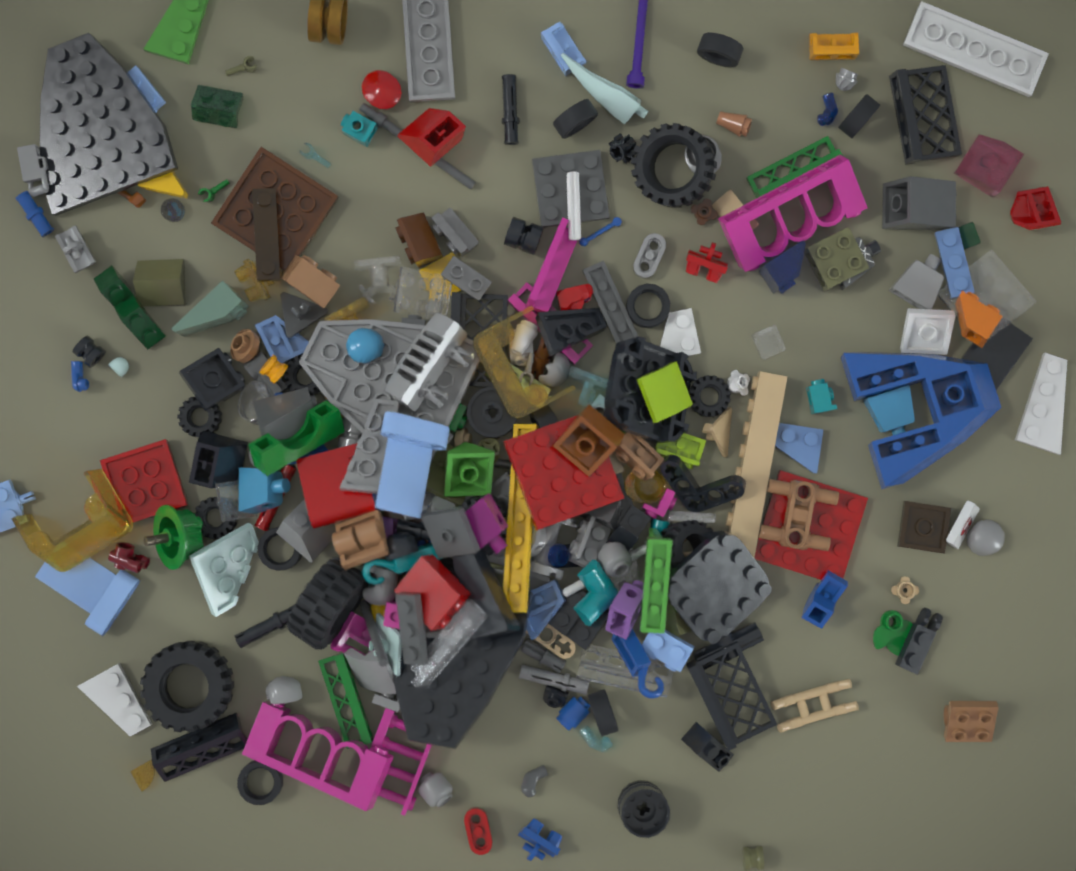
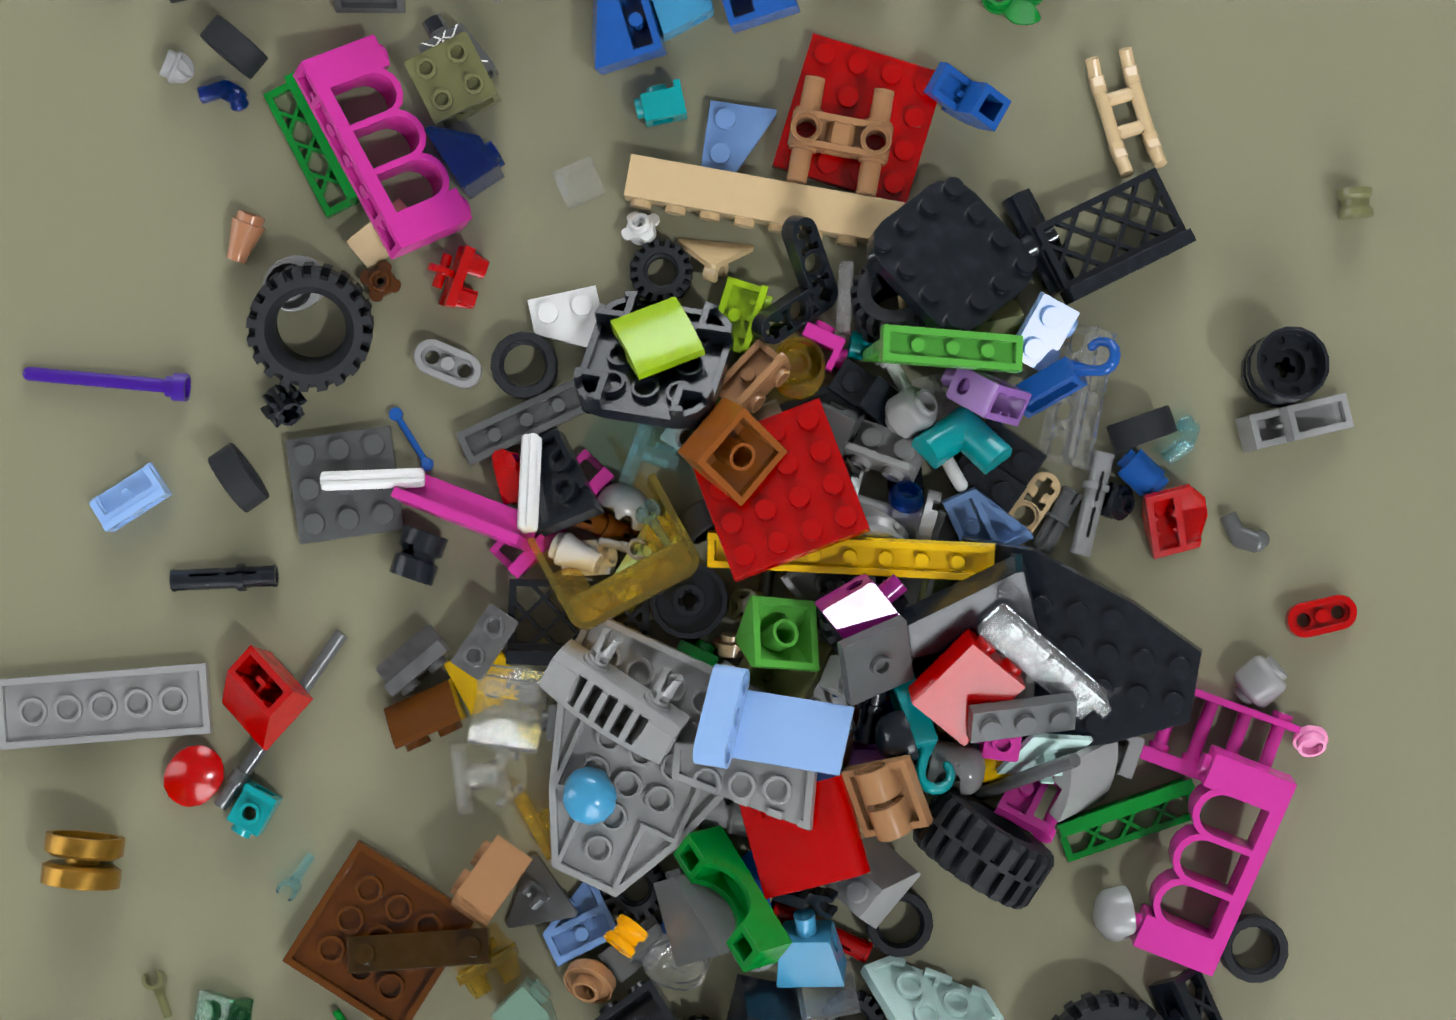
camera: 85 degrees left, 0 degrees up
(263, 628) = (1022, 949): black pin -> none
(296, 494) = (816, 897): none -> black plate
(395, 822) = (1310, 741): none -> bright pink plate
(542, 734) = (1174, 520): none -> red slope
(544, 388) = (652, 520): none -> clear light blue hand
(549, 845) = (1341, 509): blue hips -> none
(570, 308) = (529, 483): none -> white axle
(606, 815) = (1294, 422): none -> light grey slope
(611, 96) = (204, 422): light aqua piece -> none
(707, 747) = (1190, 272): black slope -> none
(720, 49) = (132, 257): black tyre -> none
(833, 46) = (126, 86): light orange hinge -> none

